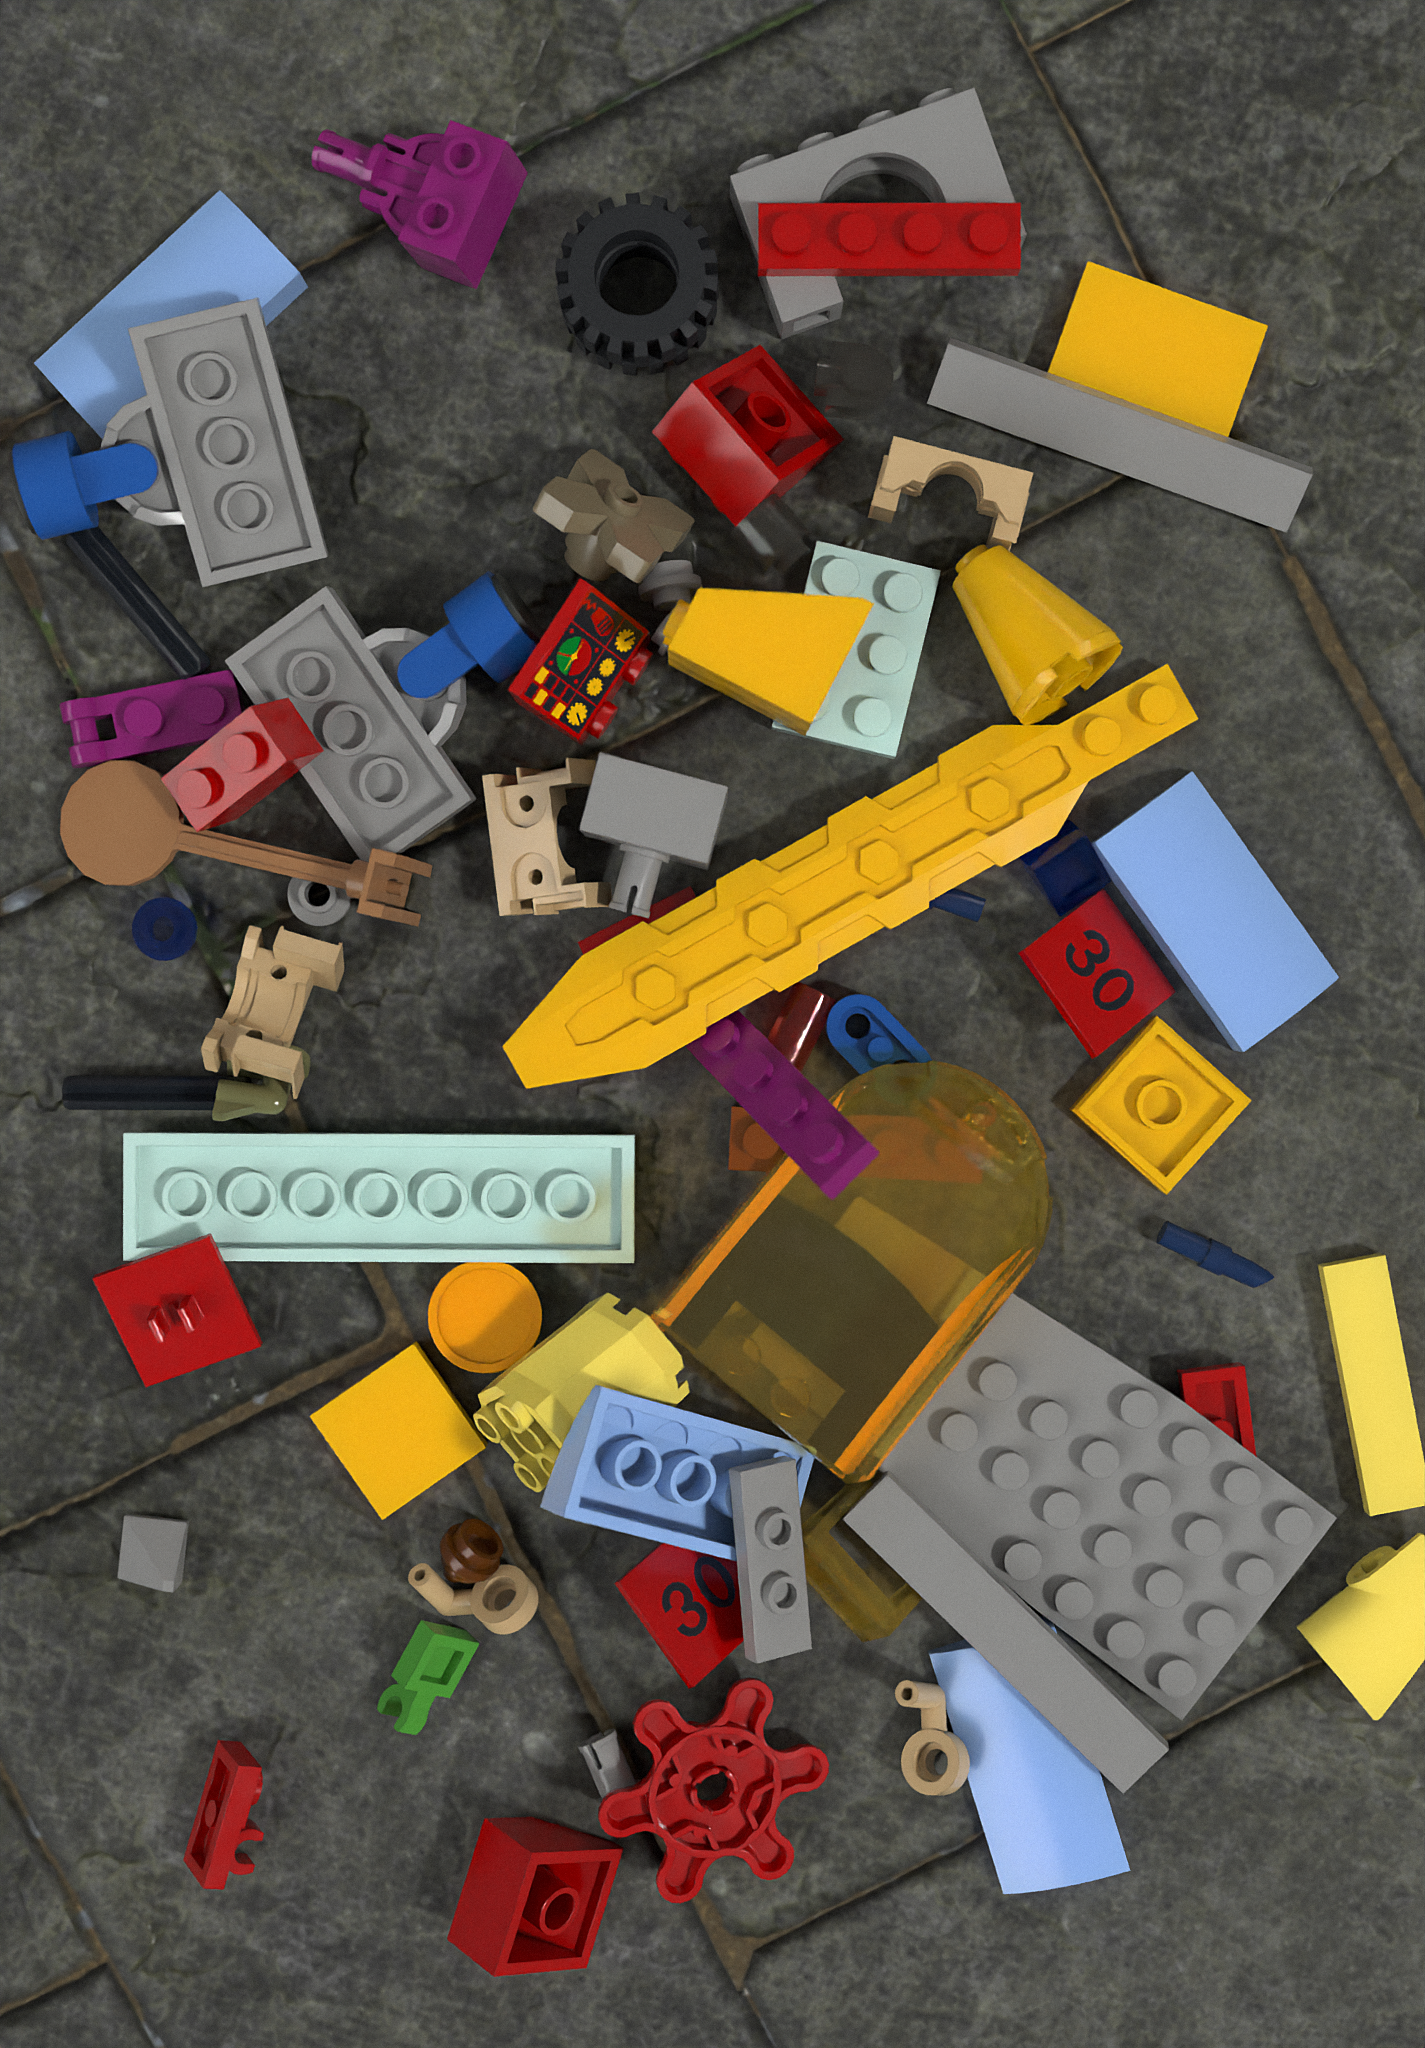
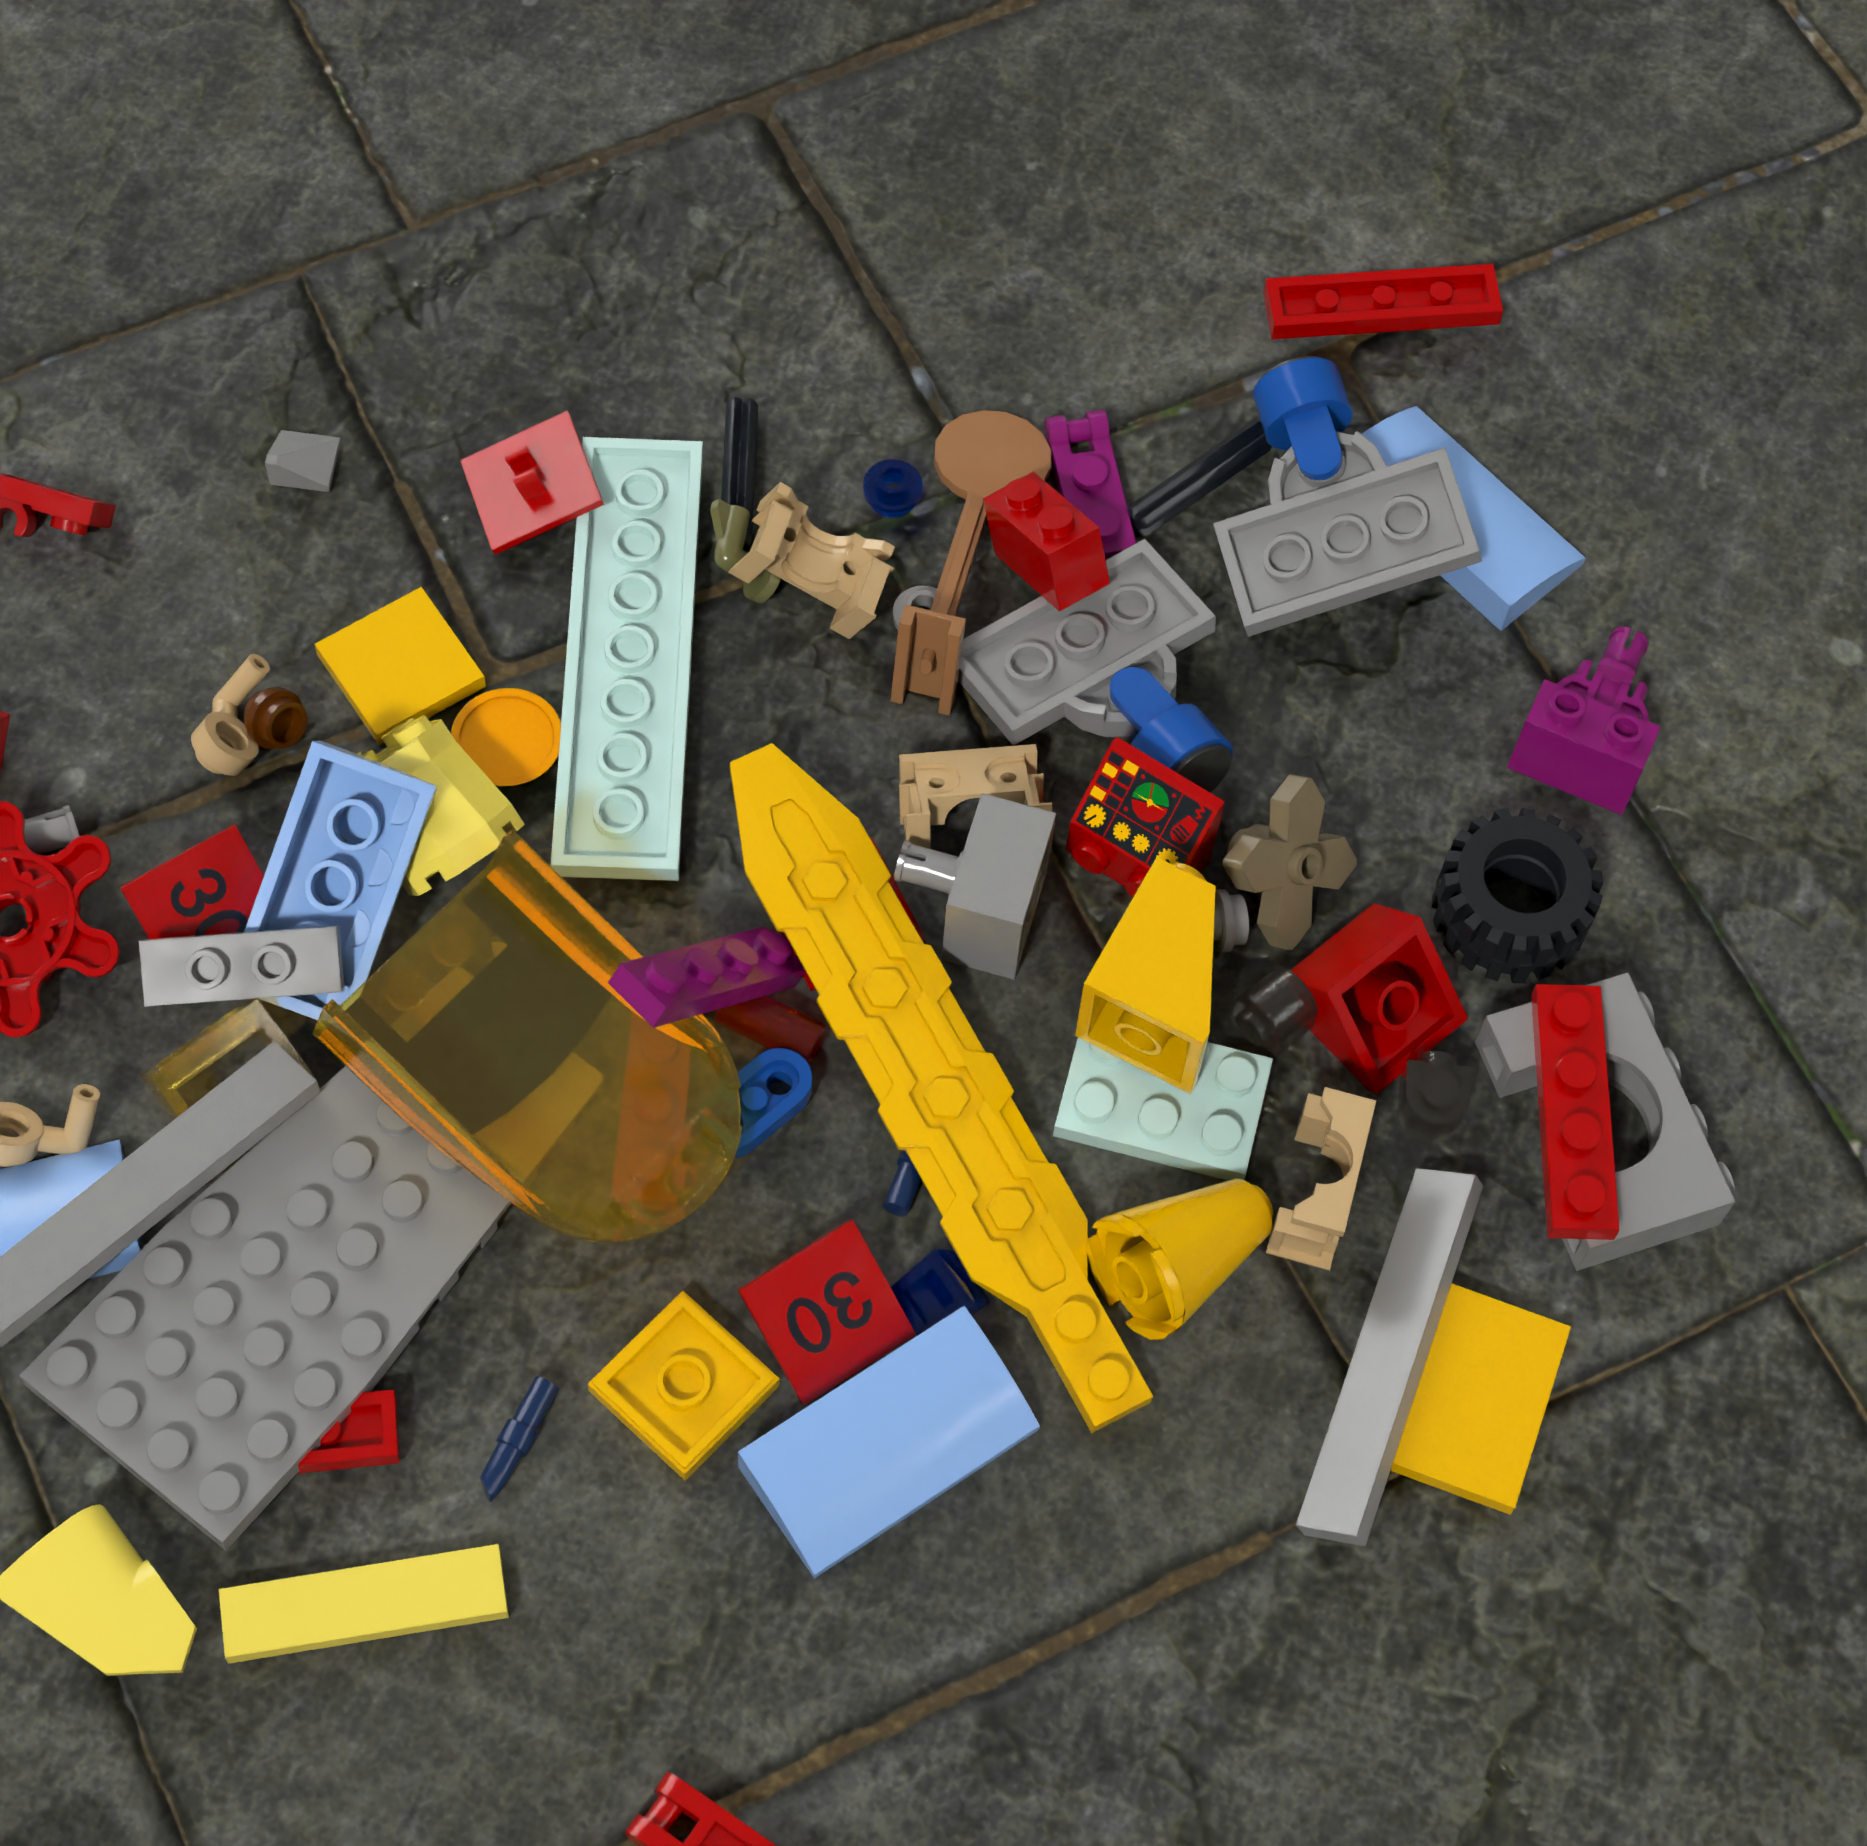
camera: 90 degrees right, 25 degrees down
(426, 1669) = (164, 676): bright green plate -> none

